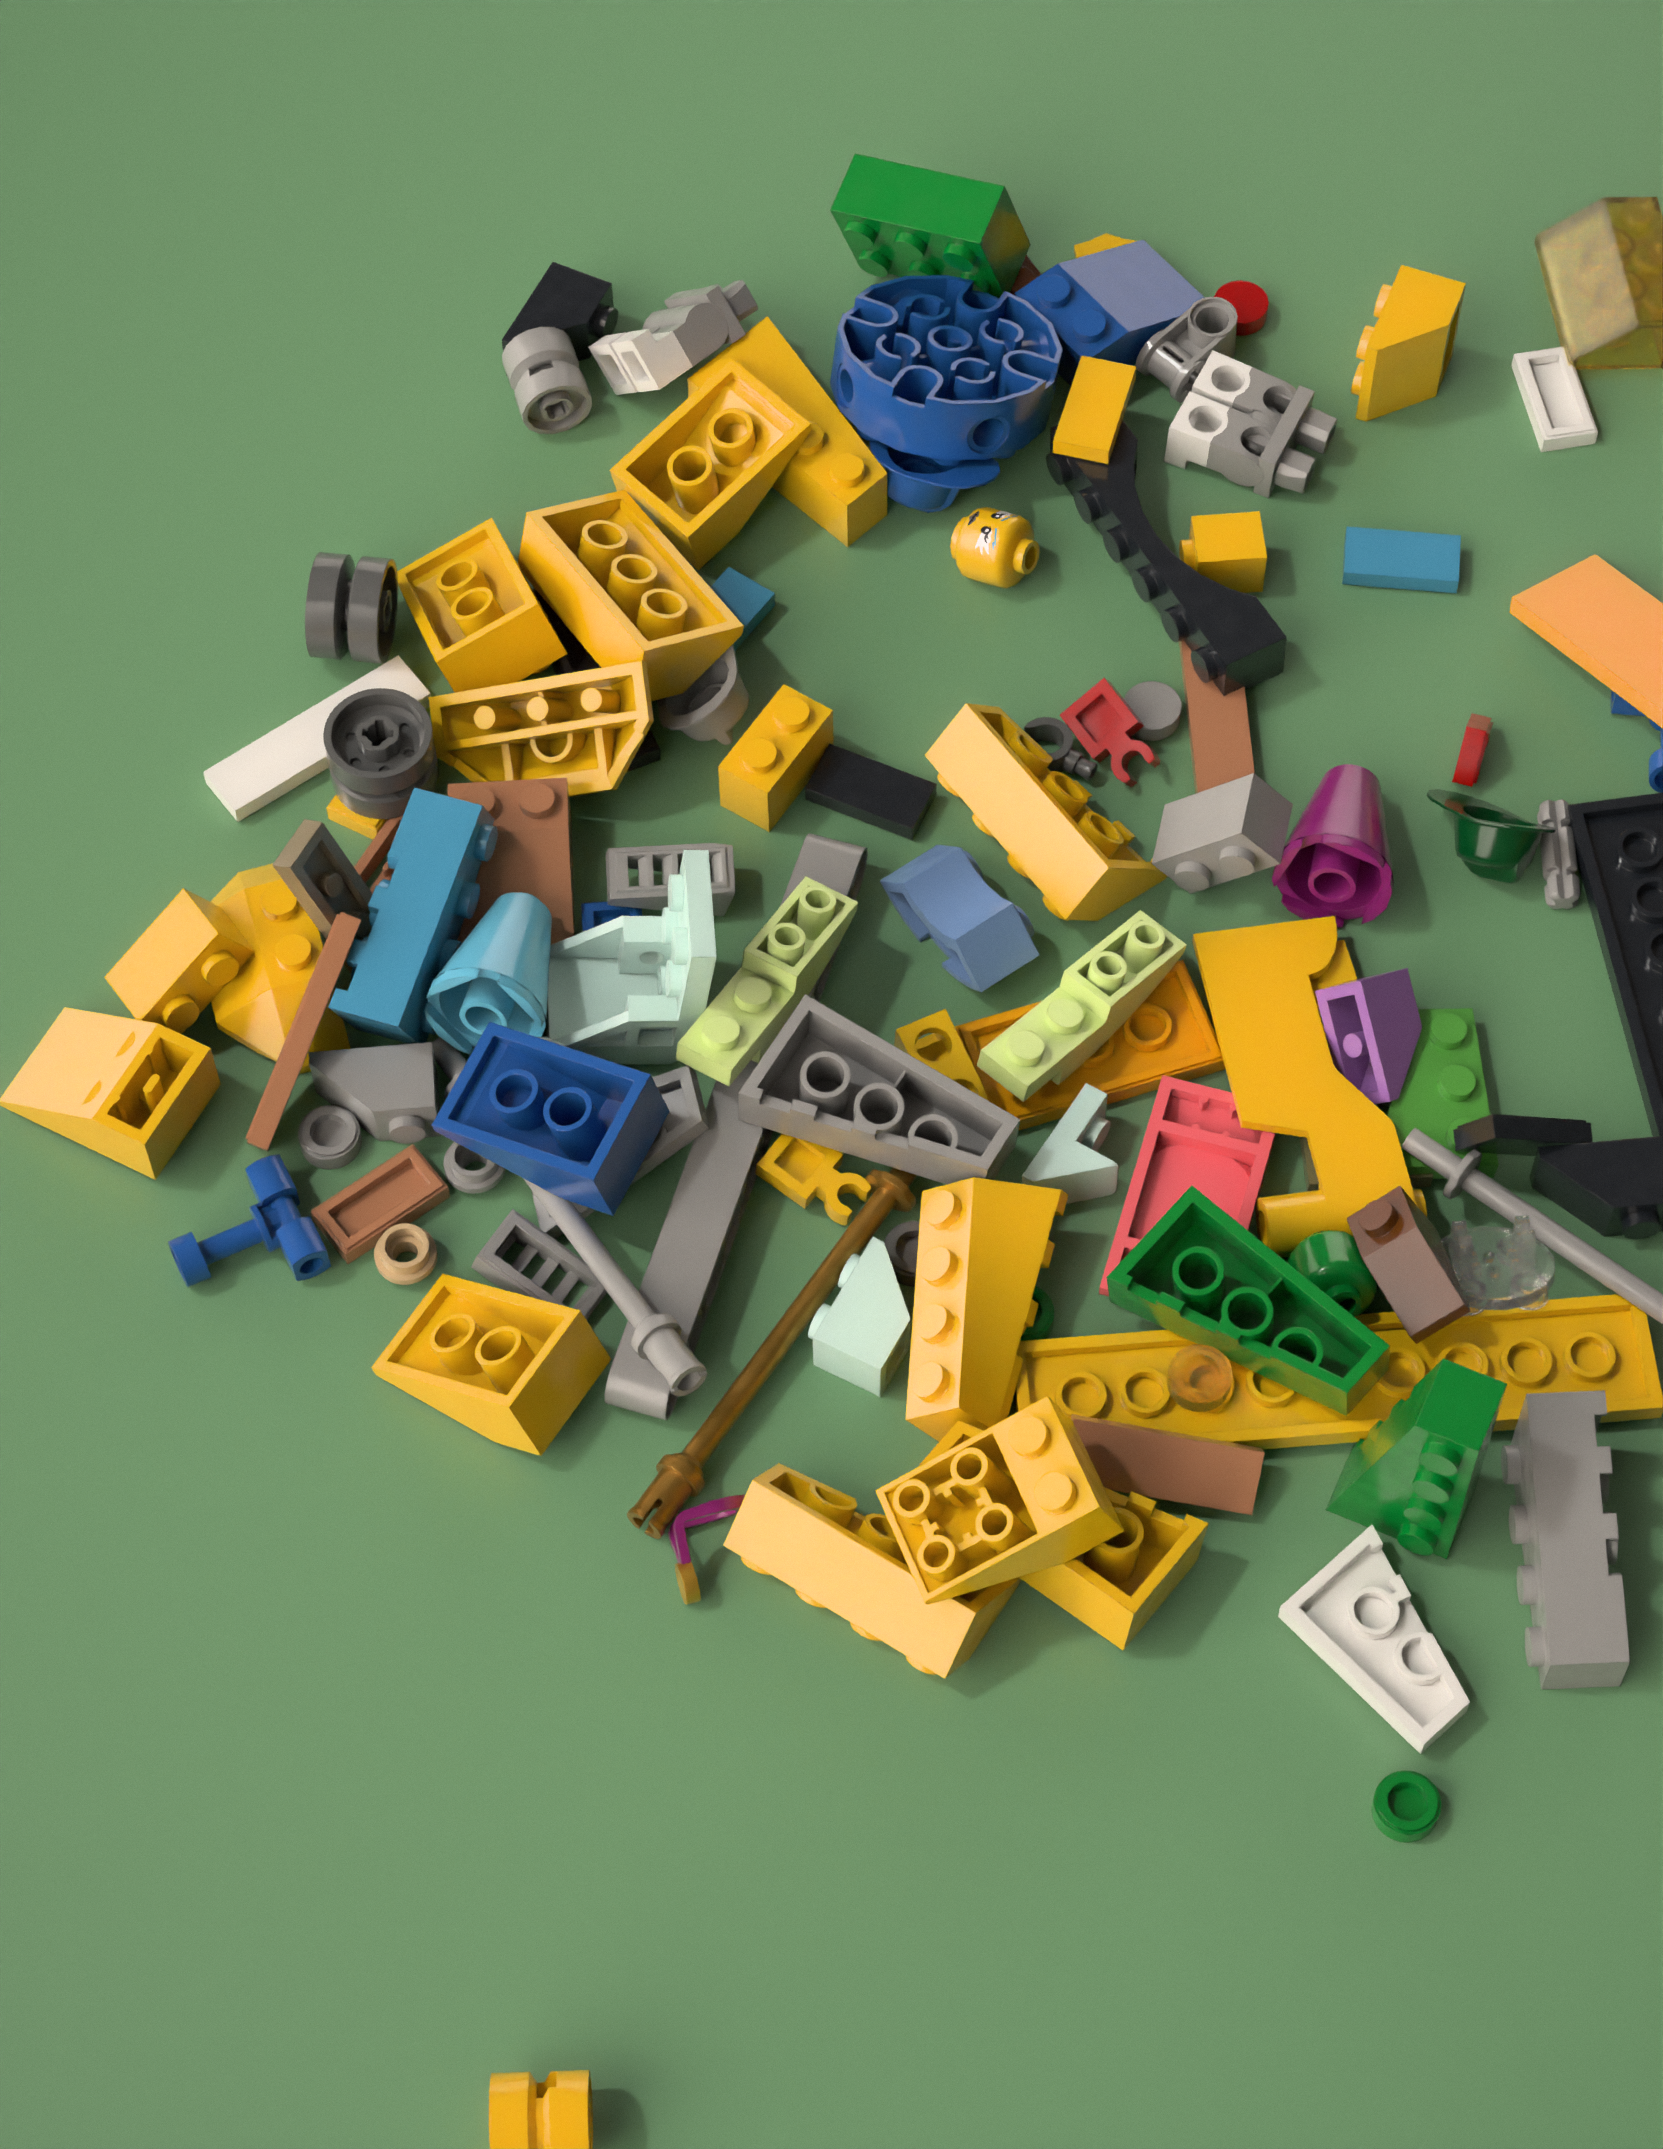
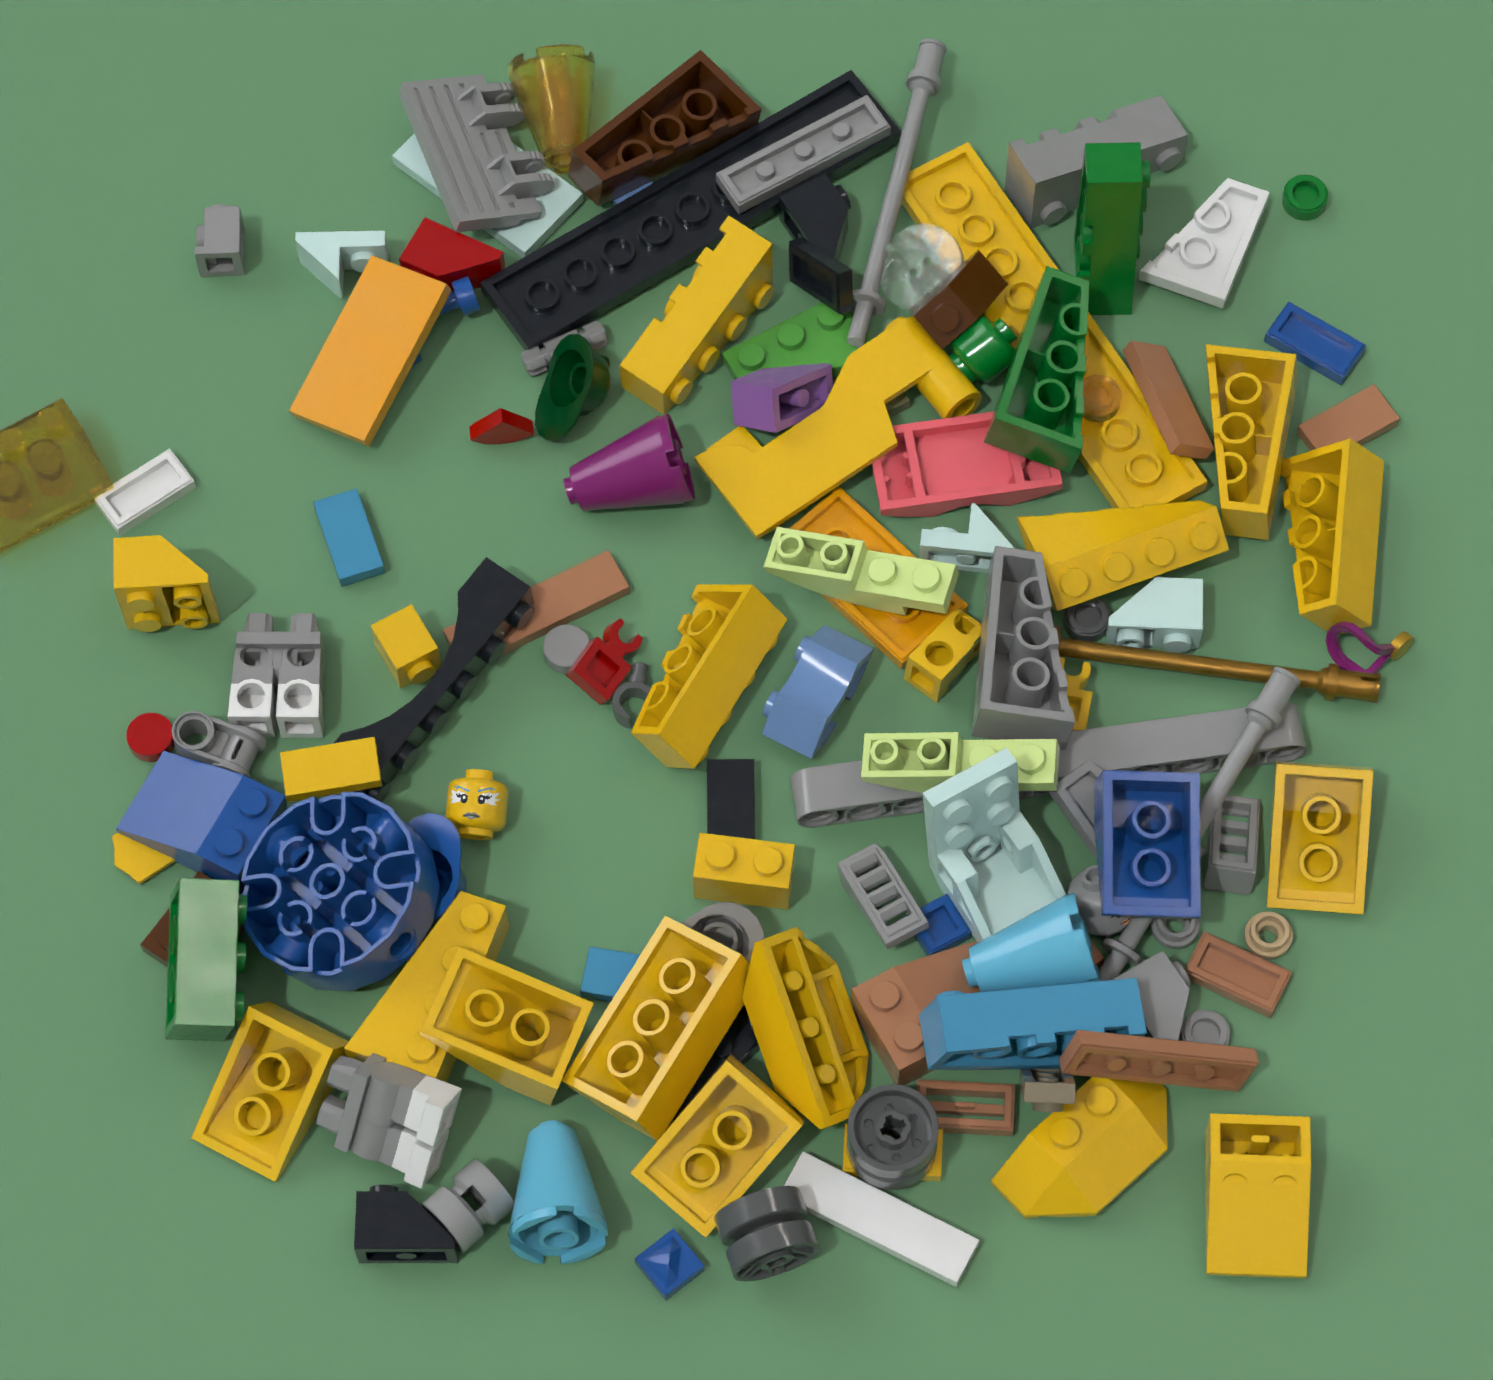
camera: 115 degrees left, 5 degrees up
(180, 963) = (1146, 1185): yellow brick -> none
(274, 1223) = (1296, 1030): blue bar -> none
(388, 535) = (669, 1264): none -> blue tile
(511, 450) = (556, 1199): none -> medium azure cone
(790, 265) = (269, 1089): none -> yellow slope
(1000, 1505) = (1280, 443): yellow slope -> none
(1030, 1683) = (1357, 417): none -> nougat tile
(1173, 1705) = (1315, 343): none -> blue tile
(1222, 833) = (676, 538): light grey brick -> none
(1525, 993) = (700, 318): none -> yellow wedge

